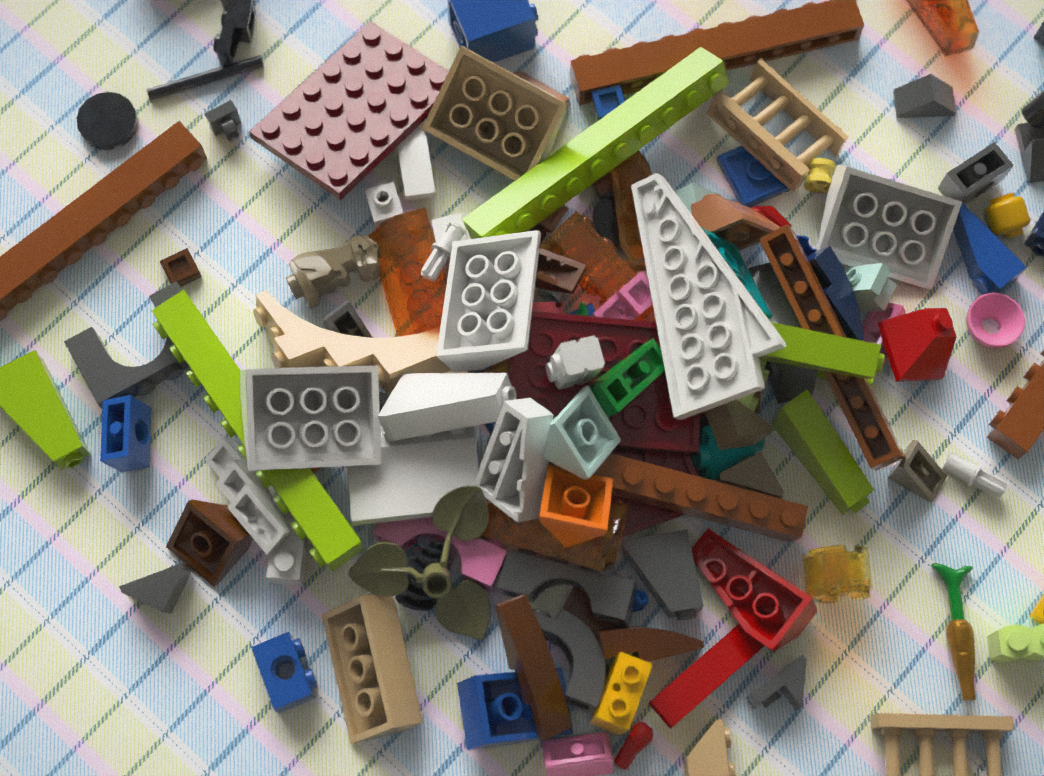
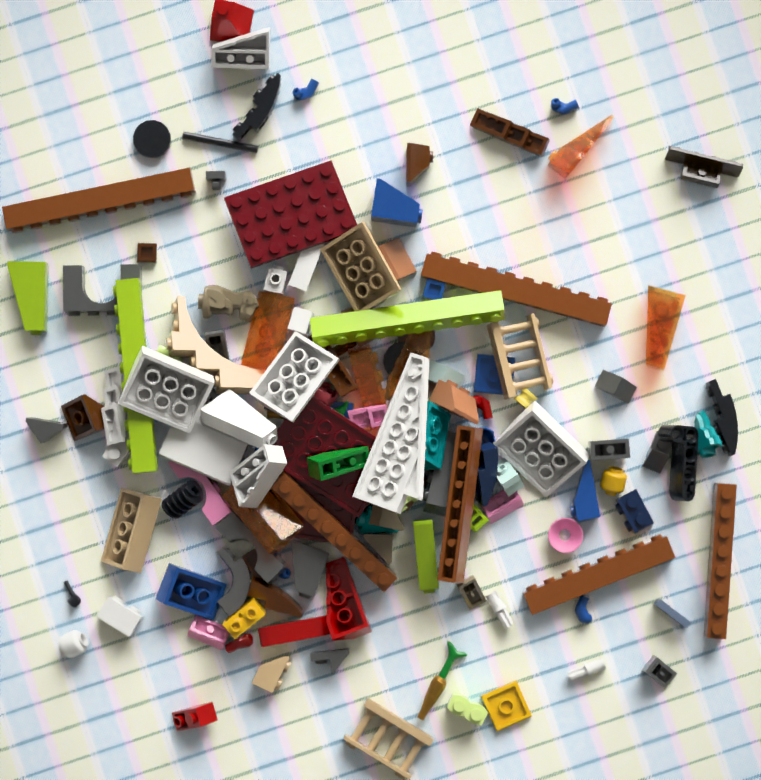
camera: 30 degrees right, 15 degrees up
(125, 434) = (70, 335): blue brick -> none
(270, 657) = (81, 518): blue brick -> none
(442, 251) = (297, 325): white axle -> none
(457, 609) = (191, 526): olive plant -> none
(534, 665) = (209, 578): reddish brown slope -> none
(575, 362) = (315, 441): white brick -> none
(575, 506) = (272, 514): orange slope -> none
(581, 436) = (295, 483): light aqua slope -> none
(827, 352) = (446, 507): lime slope -> none
(837, 573) = (391, 620): clear yellow brick -> none
(919, 344) = (513, 525): red slope -> none

